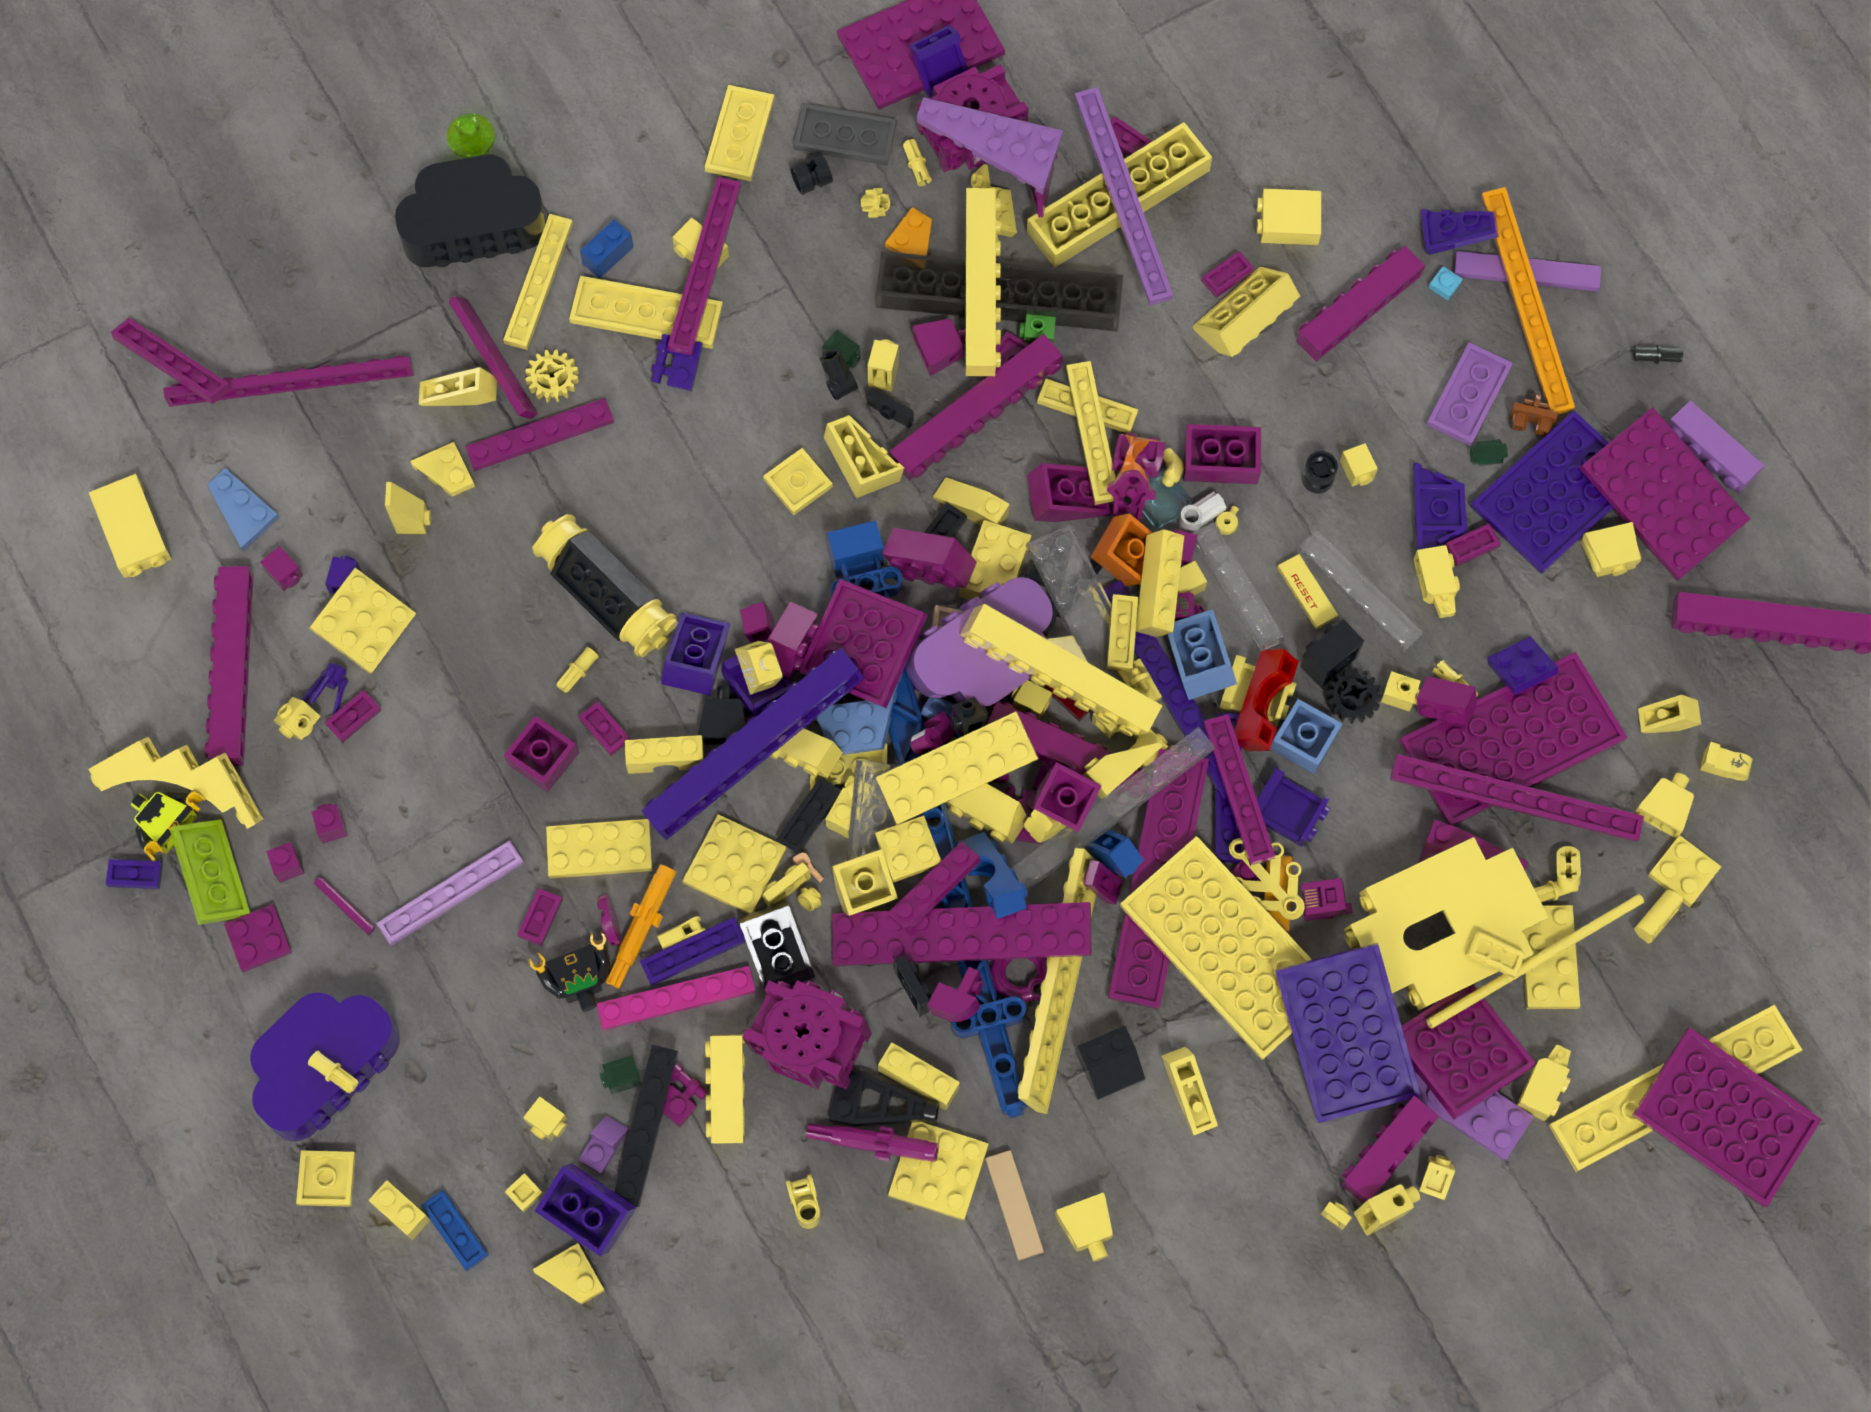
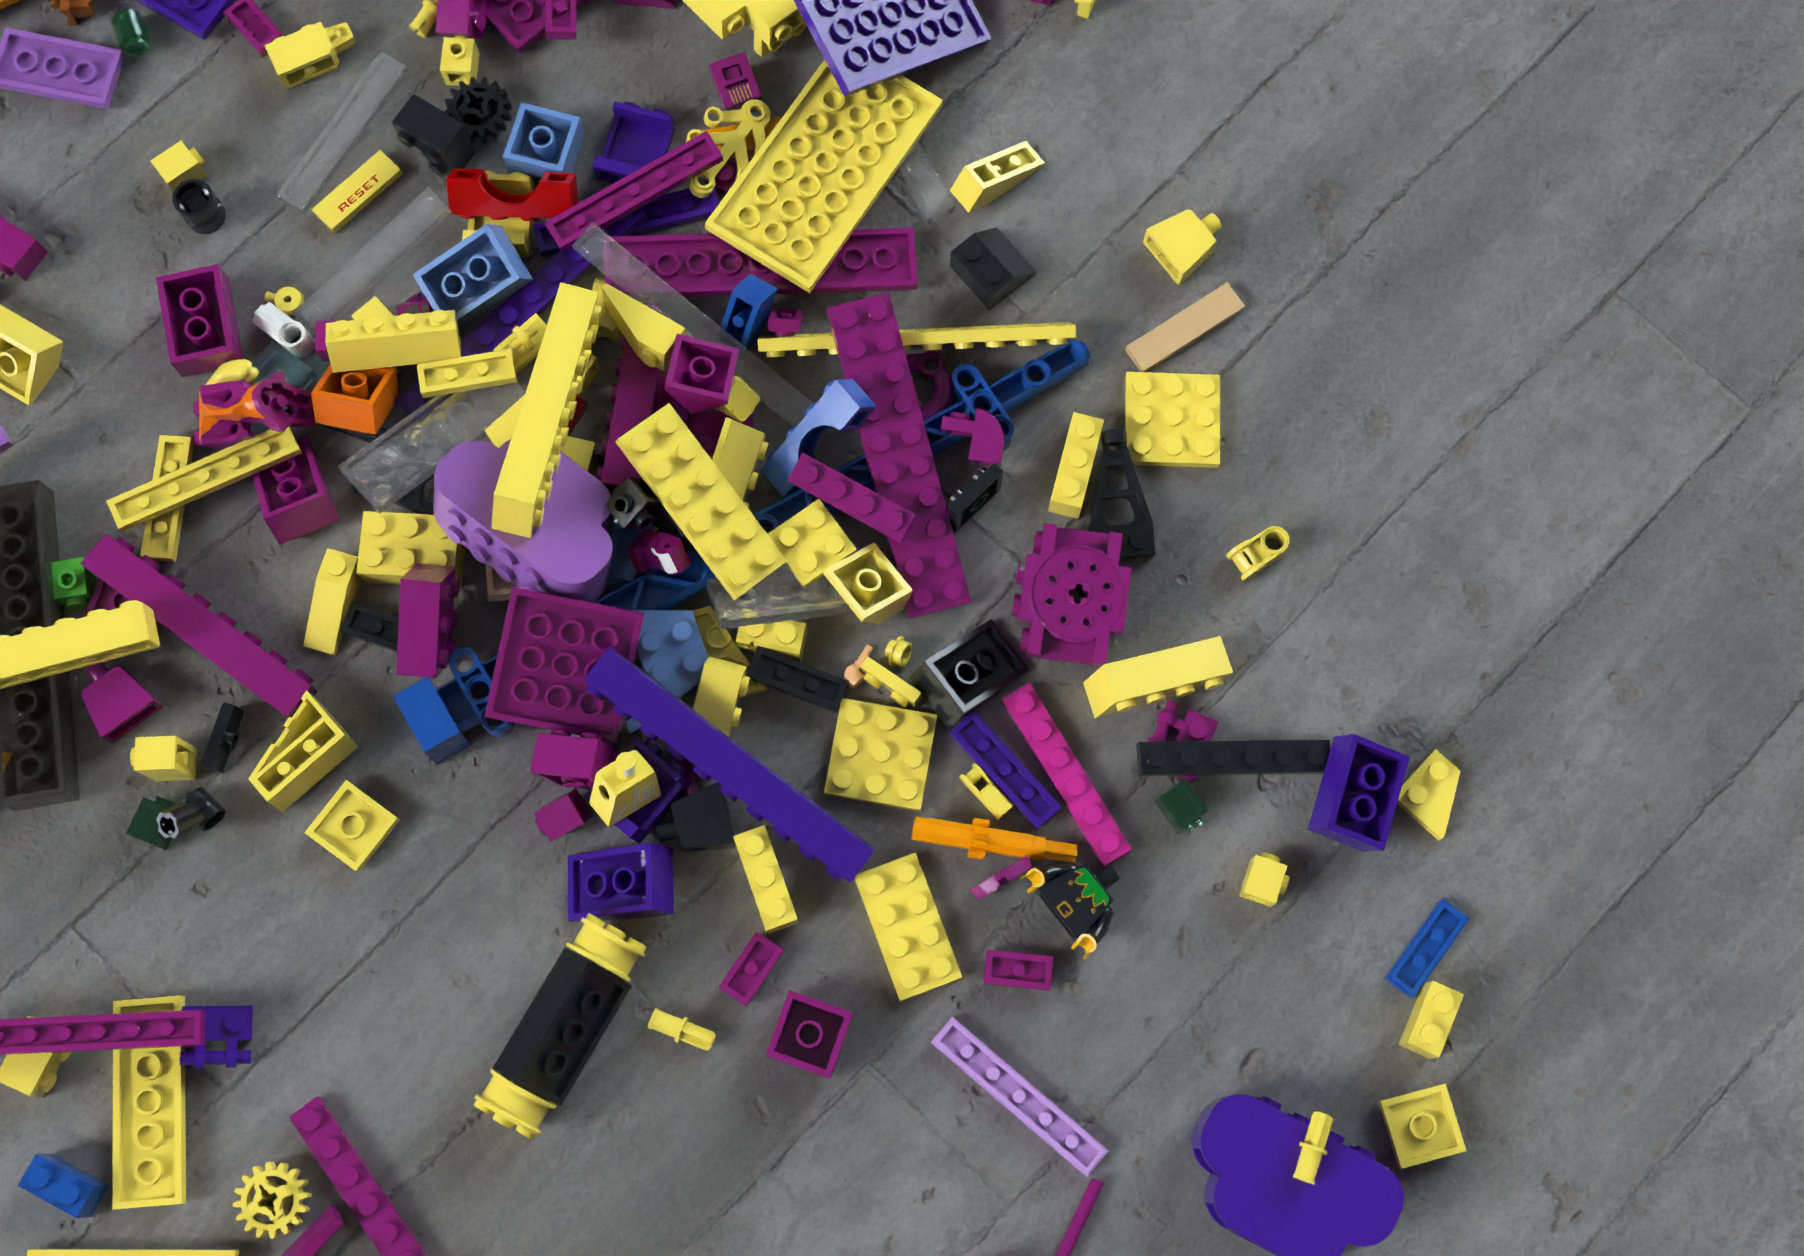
camera: 105 degrees left, 5 degrees up
(524, 1192) = (1357, 878): light yellow plate -> none
(603, 1144) = (1267, 803): medium lavender slope -> none
(882, 1143) = (1167, 481): magenta piece -> none
(1438, 508) = (216, 72): dark purple wing -> none

